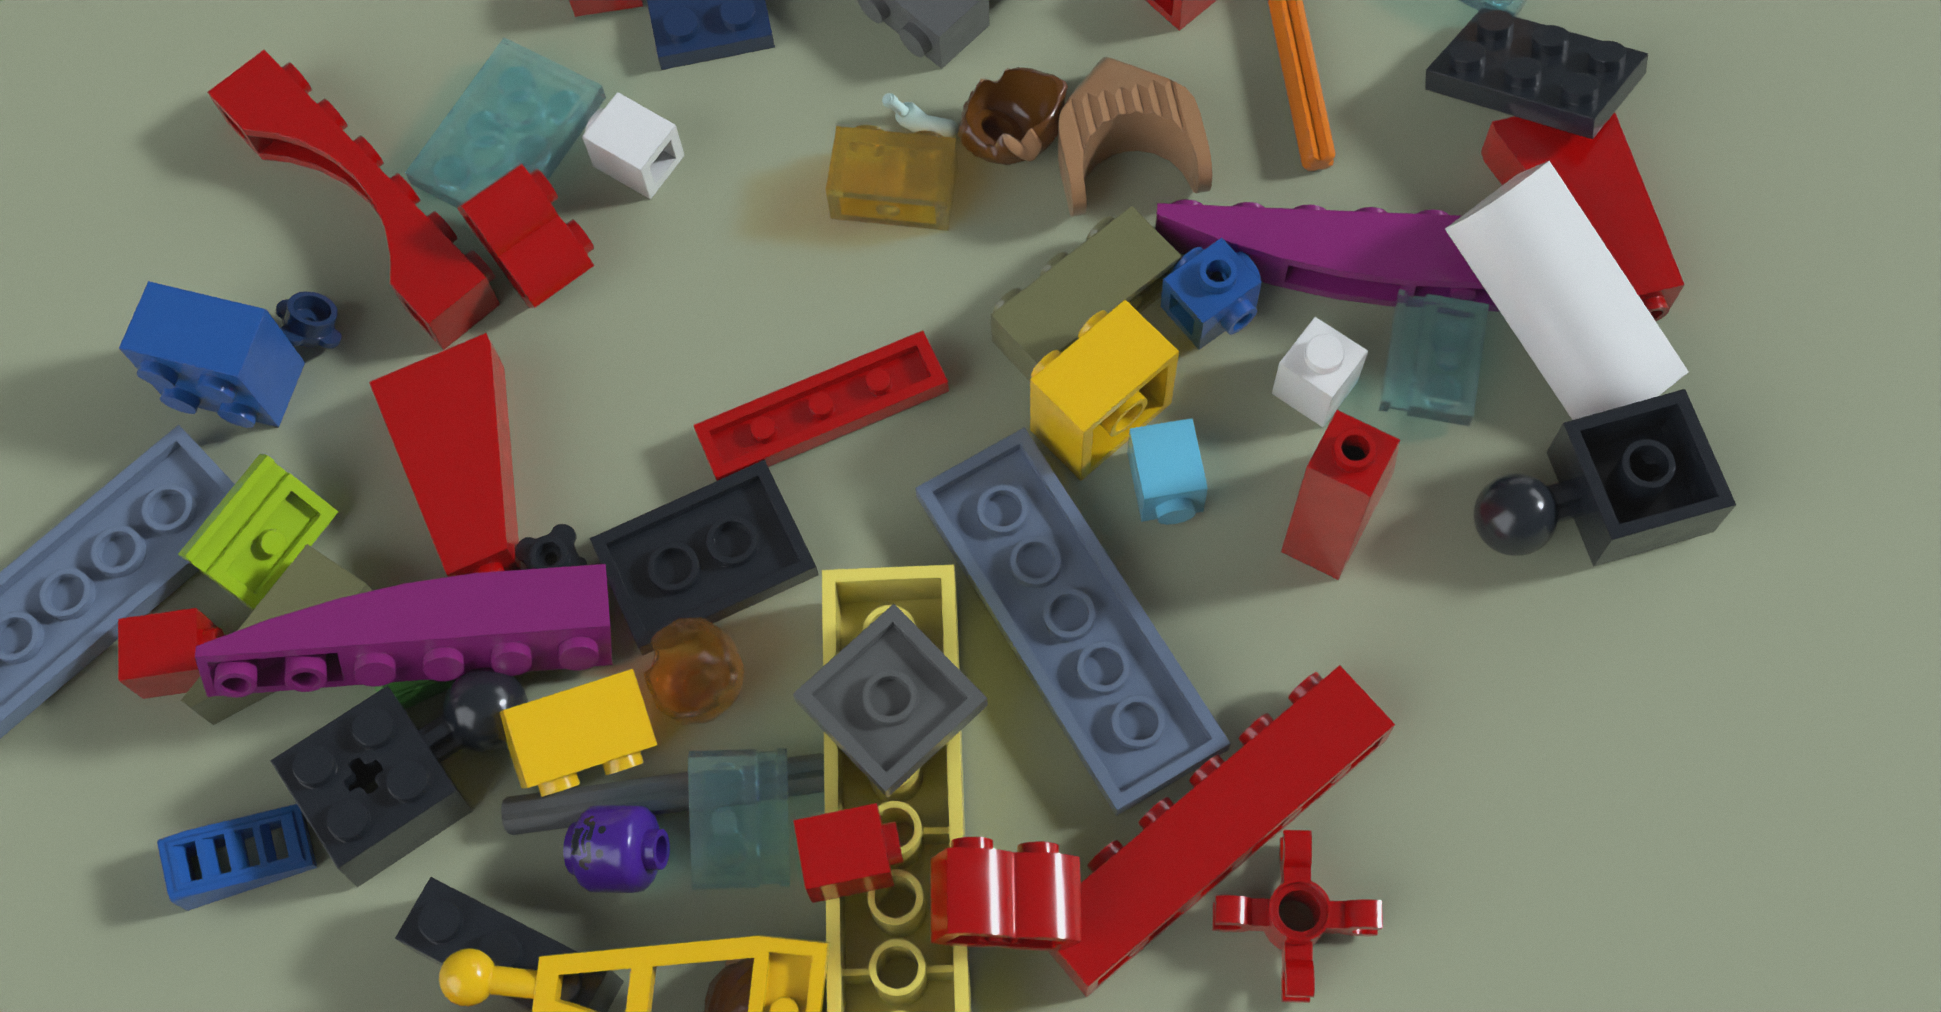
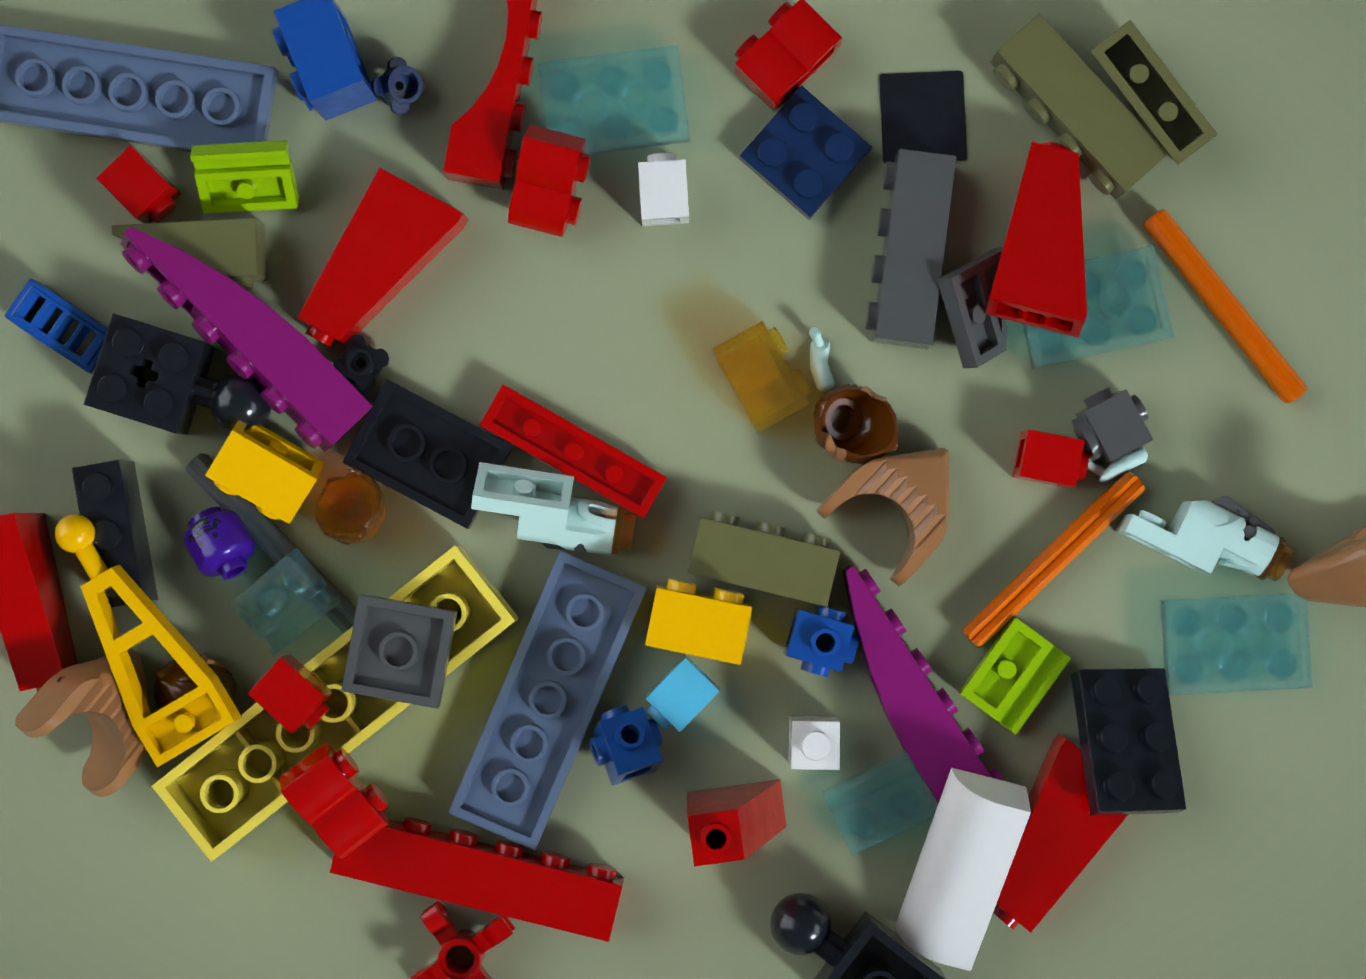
camera: 50 degrees right, 20 degrees up
(870, 462) = (549, 511): none -> light aqua plate
(1182, 559) = (629, 759): none -> blue brick
(1388, 144) = (1014, 675): none -> lime plate

